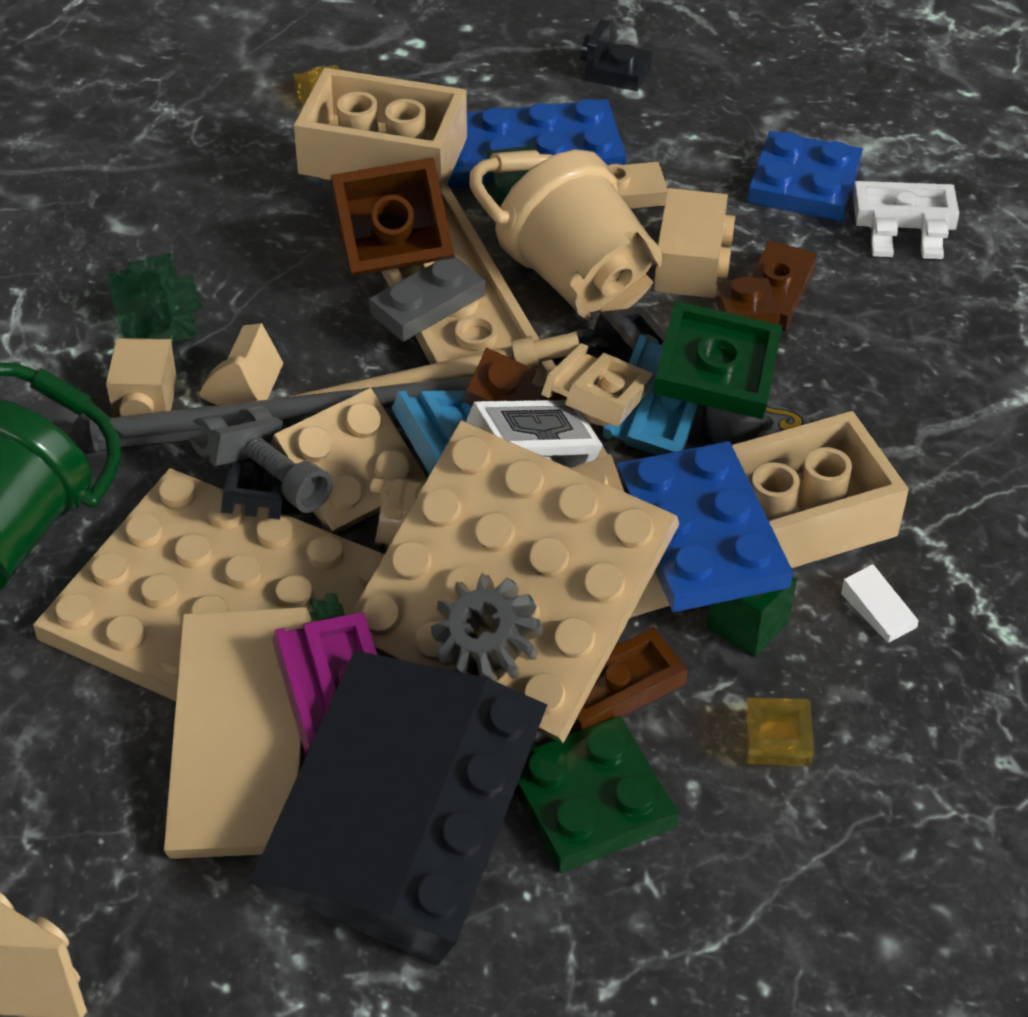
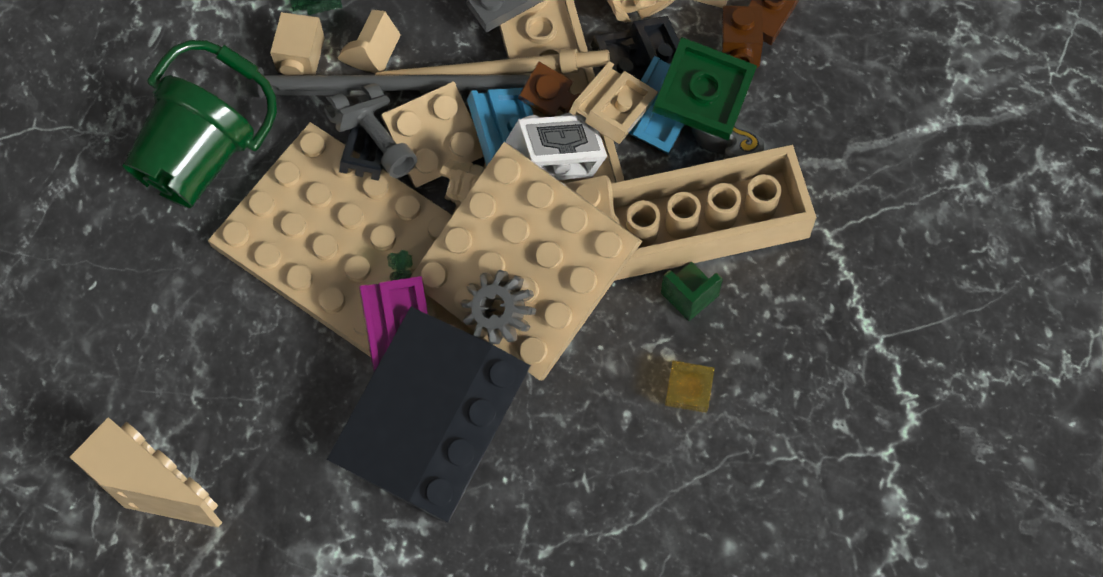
camera: 10 degrees right, 20 degrees up
(232, 734) = (328, 343): tan tile -> none
(593, 795) = (559, 415): dark green plate -> none
(631, 678) = (602, 331): reddish brown plate -> none
(722, 536) = (670, 221): blue plate -> none
(878, 603) = (783, 291): white piece -> none

